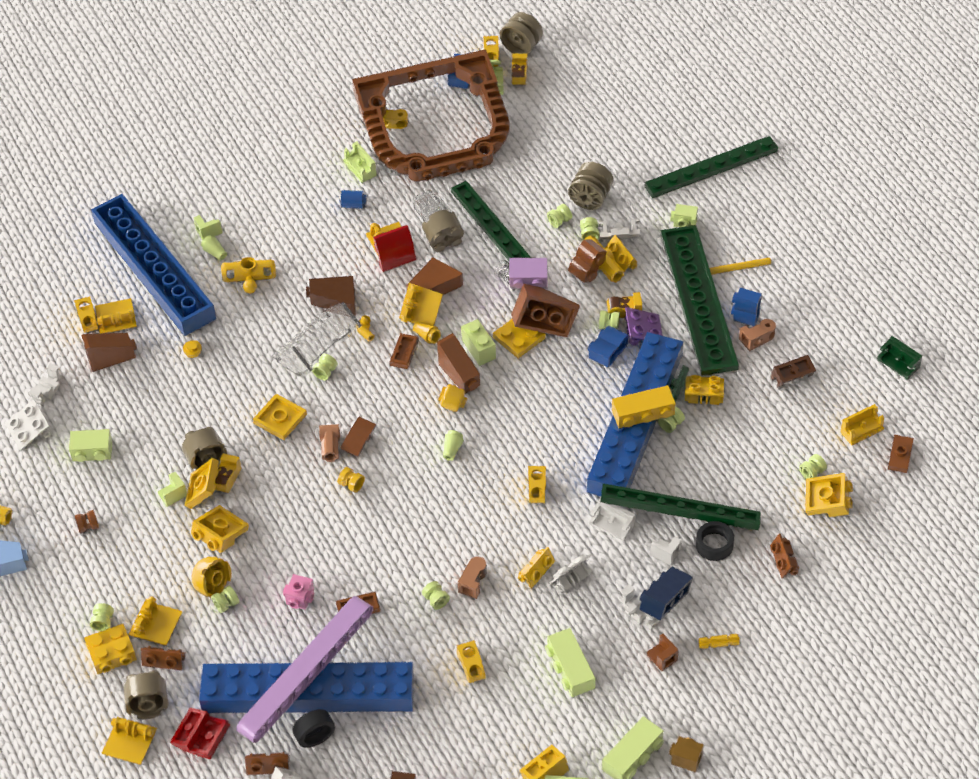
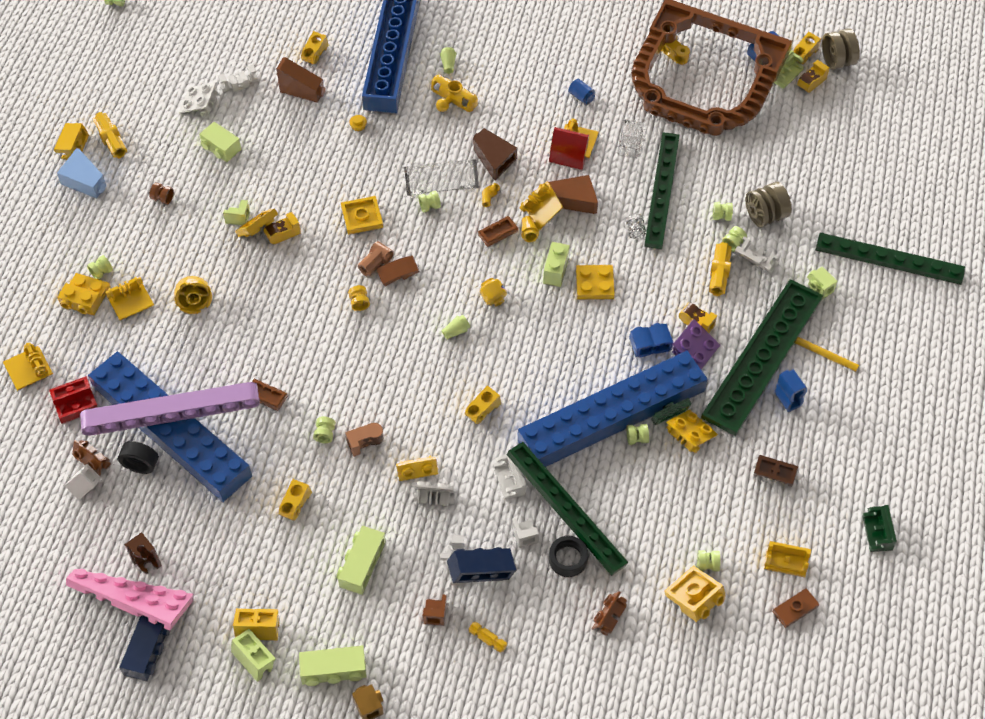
camera: 40 degrees right, 5 degrees up
(115, 316) = (333, 62): yellow hinge -> none
(145, 695) = (63, 343): dark tan brick -> none
(159, 658) = (104, 323): dark orange hinge -> none
(202, 446) = (283, 197): dark tan brick -> none
(209, 228) = (459, 44): yellowish green panel -> none
(218, 528) = (235, 264): yellow plate -> none
(225, 599) = (186, 318): yellowish green wheel -> none
(299, 592) = (236, 352): bright pink brick -> none
(360, 163) = (616, 68): yellowish green hinge -> none
(443, 230) = (619, 160): dark tan brick -> none
(457, 363) = (521, 268): dark orange slope -> none
(528, 271) = (637, 237): lavender slope -> none
(544, 311) = (623, 275): dark orange slope -> none
(587, 261) = (702, 261): dark orange brick -> none
(609, 319) = (673, 320): yellowish green wheel -> none
(621, 254) = (739, 275): yellow hinge -> none
(643, 407) = (614, 406): yellow brick -> none
(757, 335) = (781, 420): nougat leg -> none

